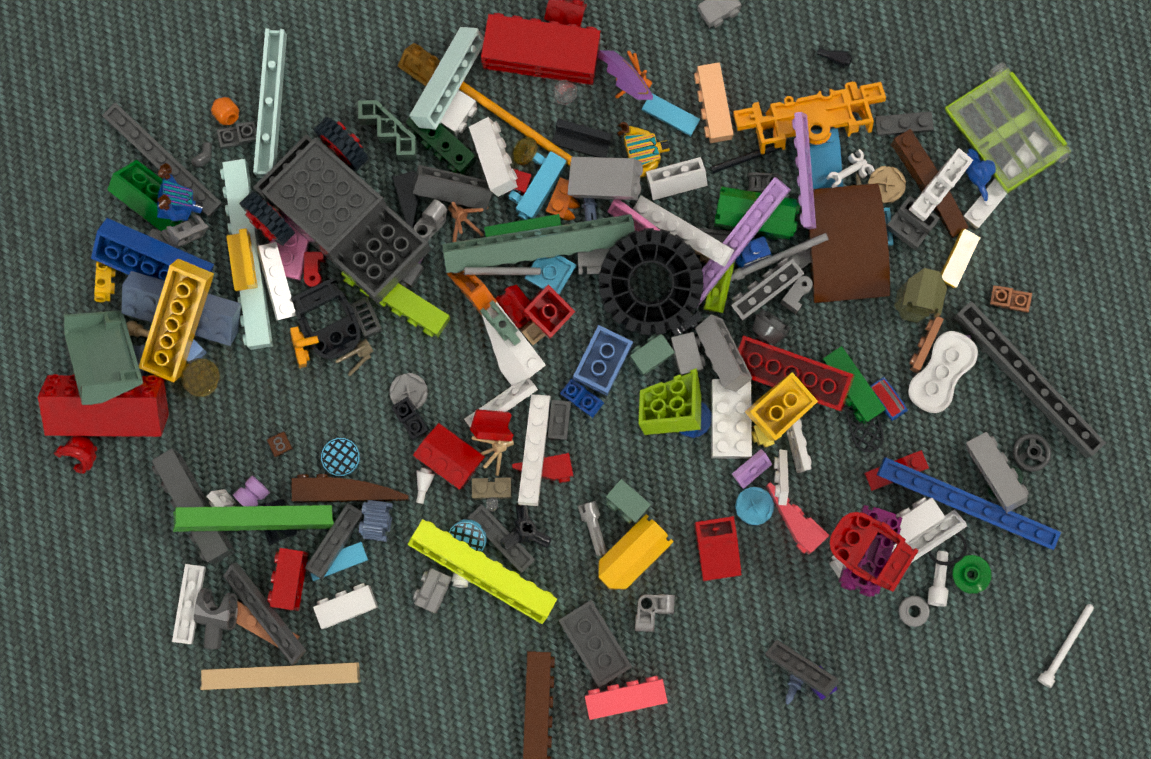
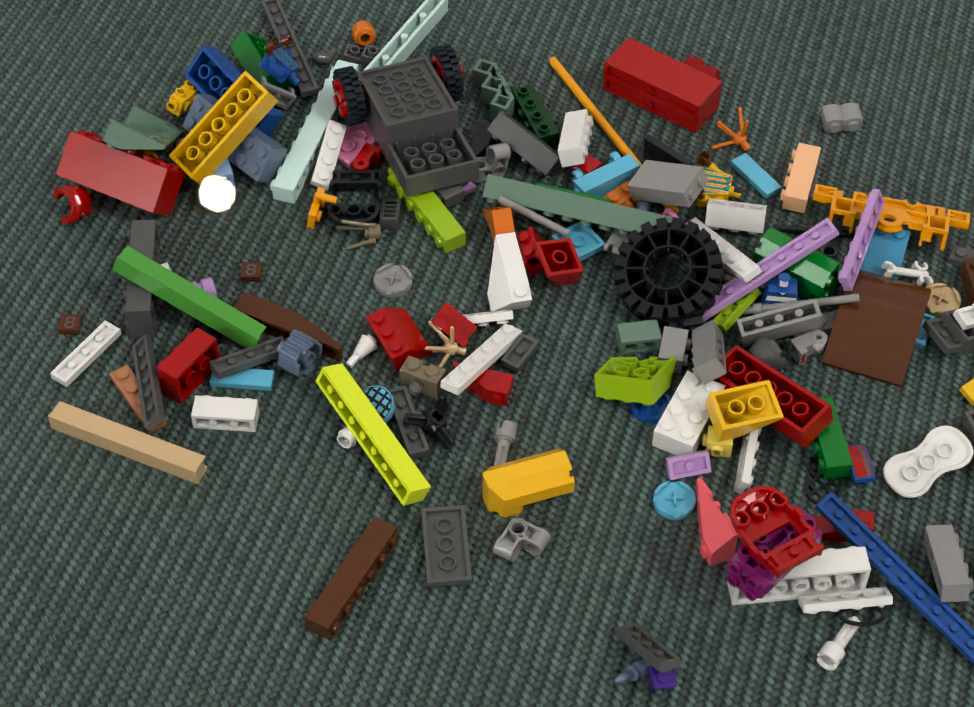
camera: 25 degrees right, 30 degrees down
(154, 579) = (70, 324): none -> reddish brown tile
(215, 617) = (102, 368): dark grey connector -> none
(242, 260) = (309, 125): yellow panel -> none
(340, 457) = (300, 300): tile -> none
(411, 418) = (381, 292): black slope -> none
(418, 63) = (548, 61): pearl gold bracket -> none
(432, 590) = (315, 434): light grey brick -> none
(447, 78) = (564, 71): light aqua brick -> none
(458, 113) = (562, 101): white brick -> none
(461, 215) = (521, 170): nougat plant -> none
(507, 332) = (509, 245): sand green hinge -> none
(520, 148) = (606, 149): clear yellow piece -> none
(532, 332) = (536, 277): tan plate -> none
(565, 92) = (667, 124): clear cone -> none
(581, 398) = (551, 346): blue slope -> none
(602, 360) = (588, 320): medium blue brick -> none
(626, 75) = (727, 123): medium lavender slope -> none
(626, 698) = (448, 598): coral brick -> none
(627, 502) = (546, 430): sand green brick -> none
(718, 548) = (617, 513): red slope -> none
(781, 477) = (714, 474): white plate -> none
(841, 58) = (939, 191): black cone -> none
(921, 296) = (932, 377): olive brick -> none
(923, 611) = (801, 652): light grey piece -> none
(925, 344) = (918, 434): nougat plate -> none
(981, 573) = (881, 643): green dish -> none

